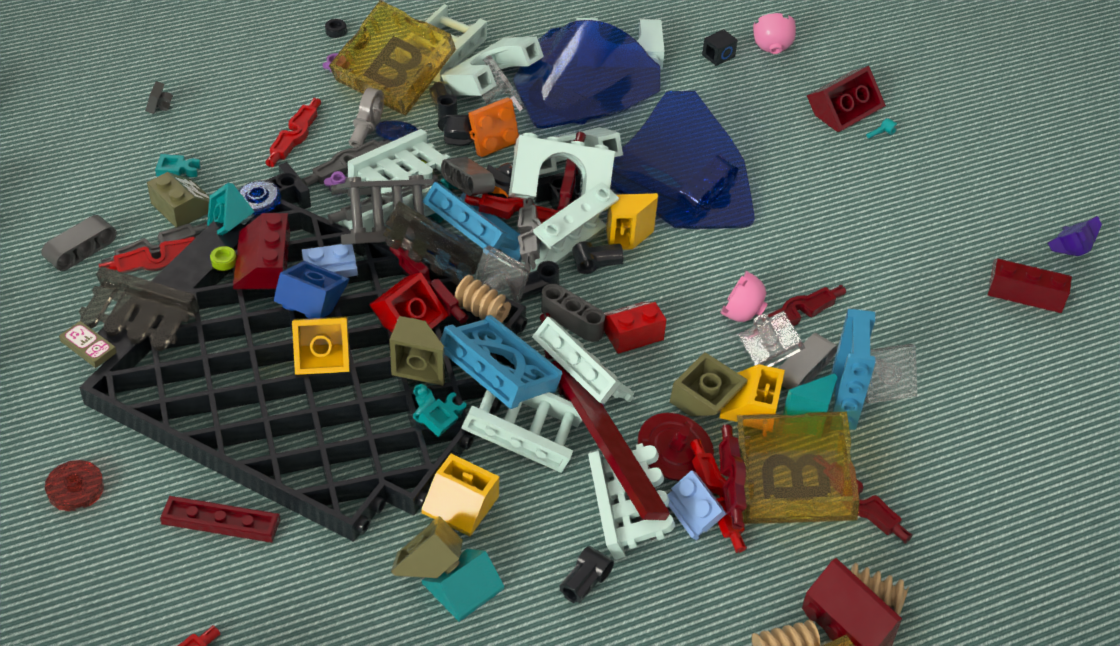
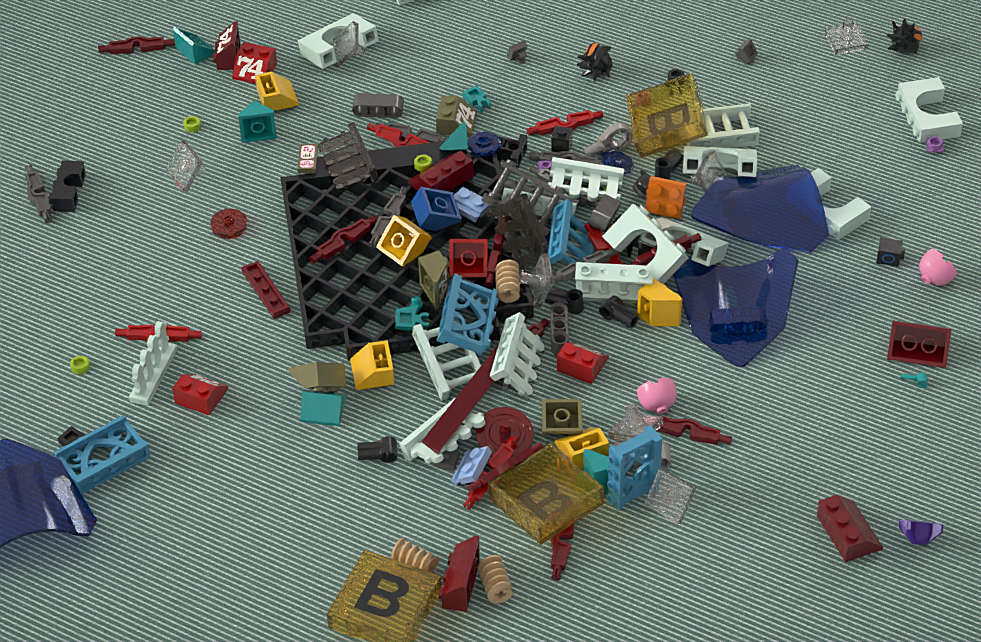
camera: 55 degrees right, 0 degrees up
(249, 404) = (336, 243): none -> dark red piece
(251, 55) = (596, 60): none -> black hair
(271, 344) = (392, 208): none -> dark grey piece
(320, 145) = (561, 139): none -> black brick

